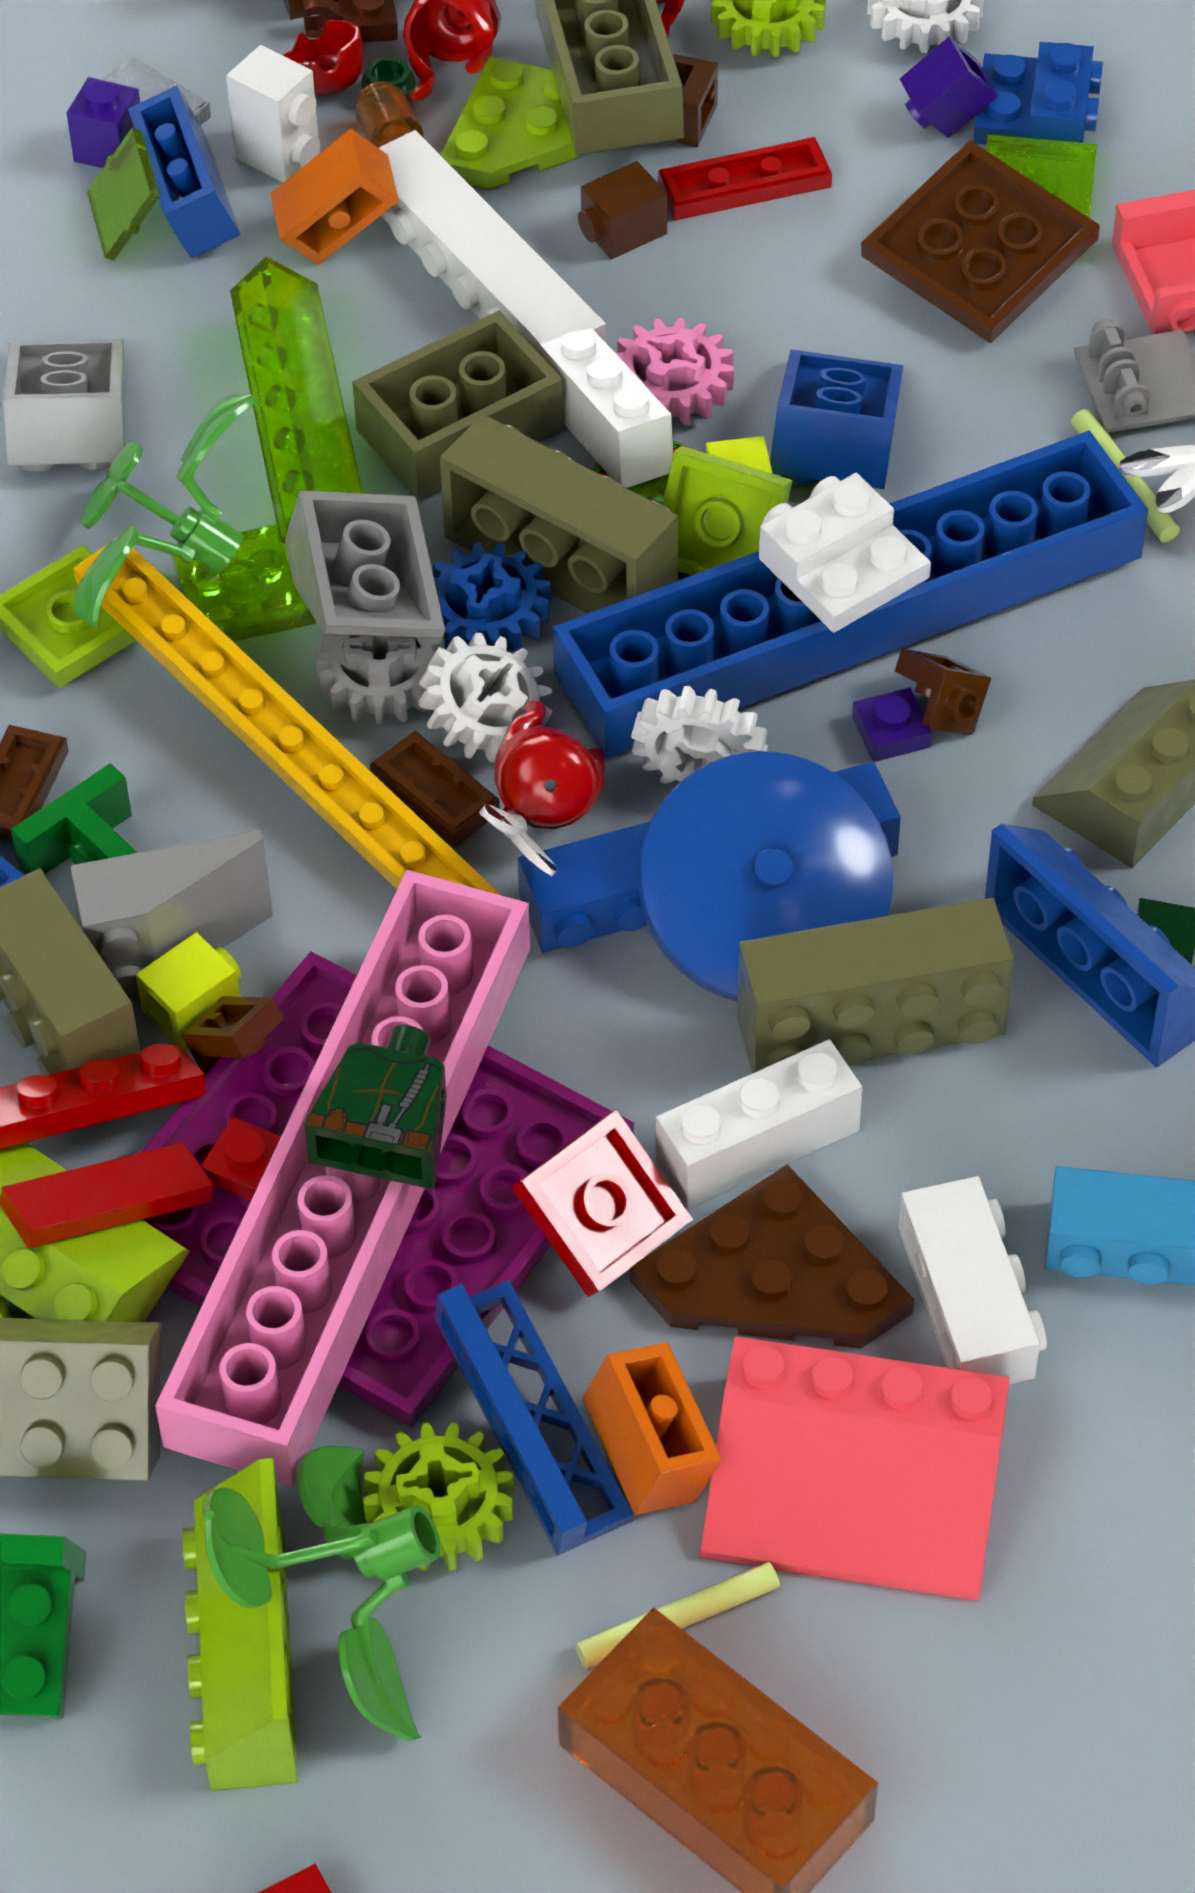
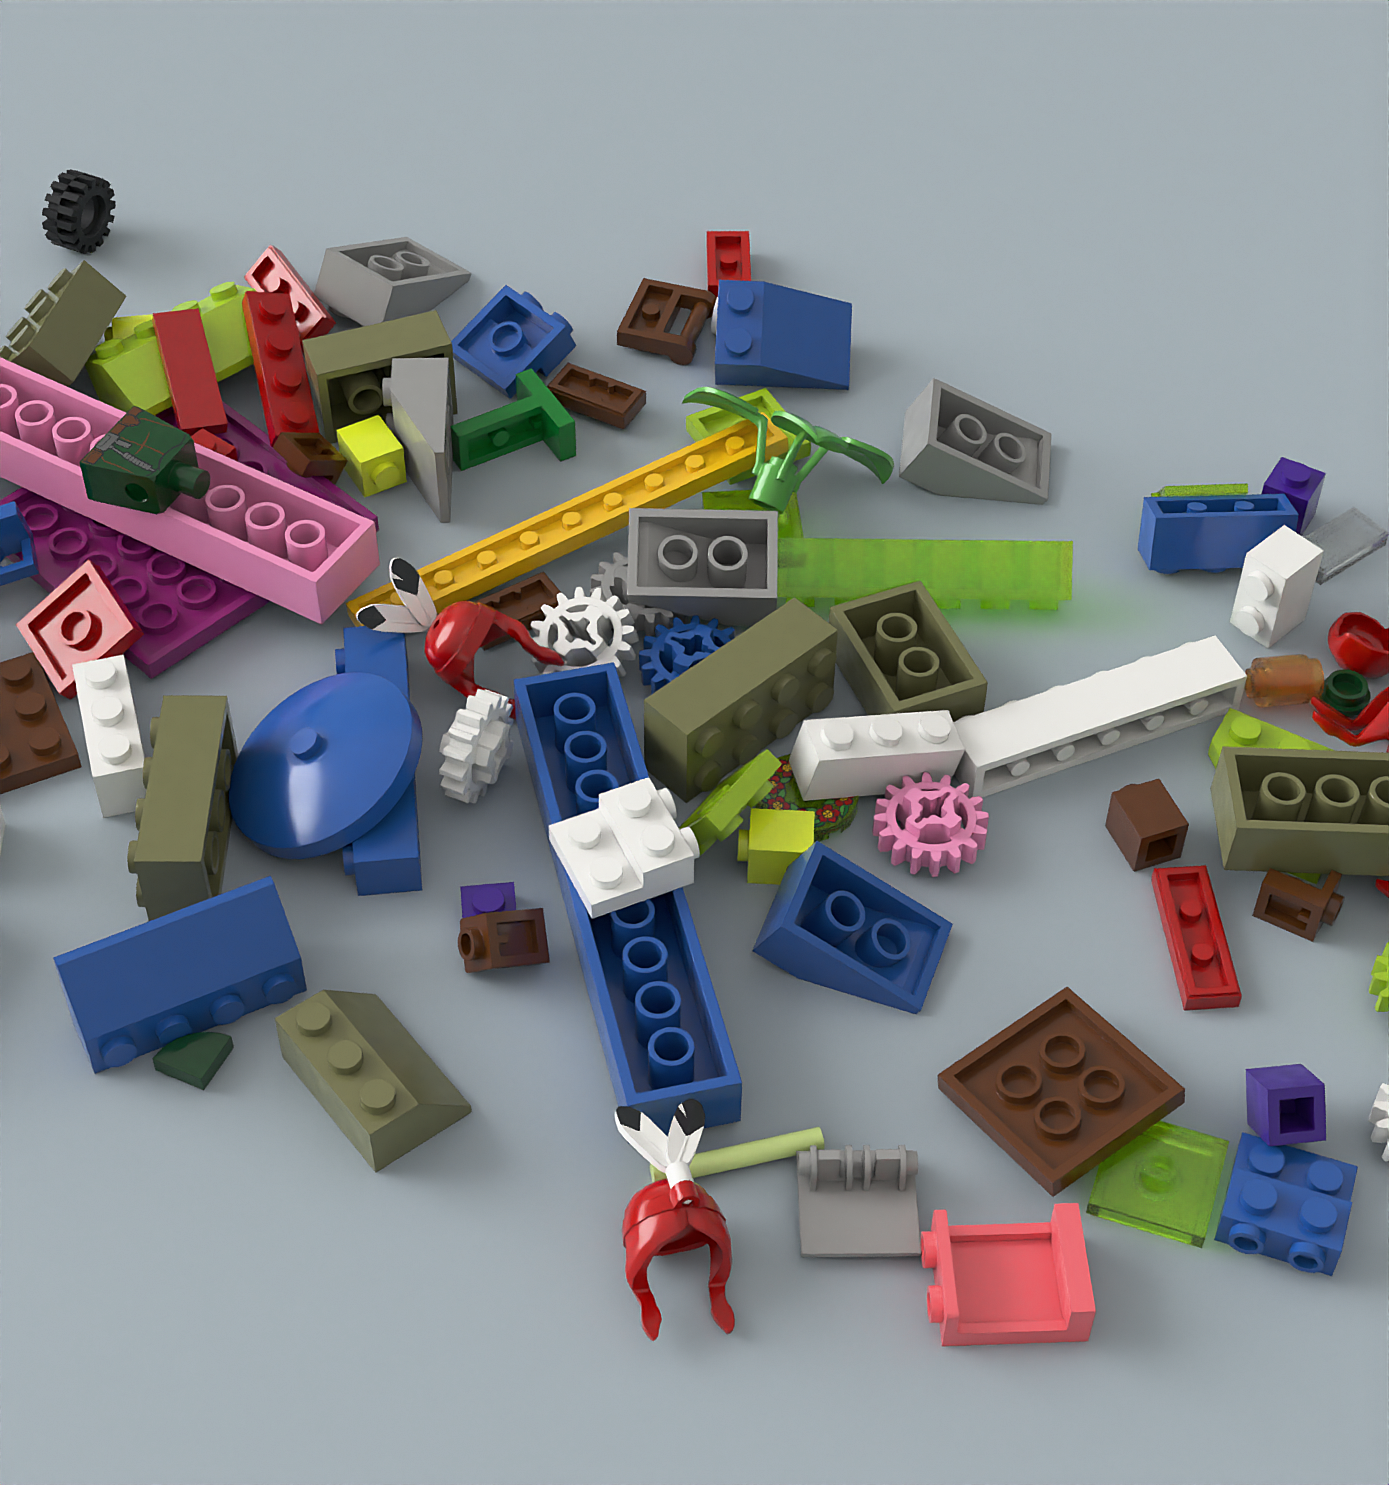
camera: 100 degrees right, 5 degrees down
(334, 197) = (1167, 612): orange brick -> none

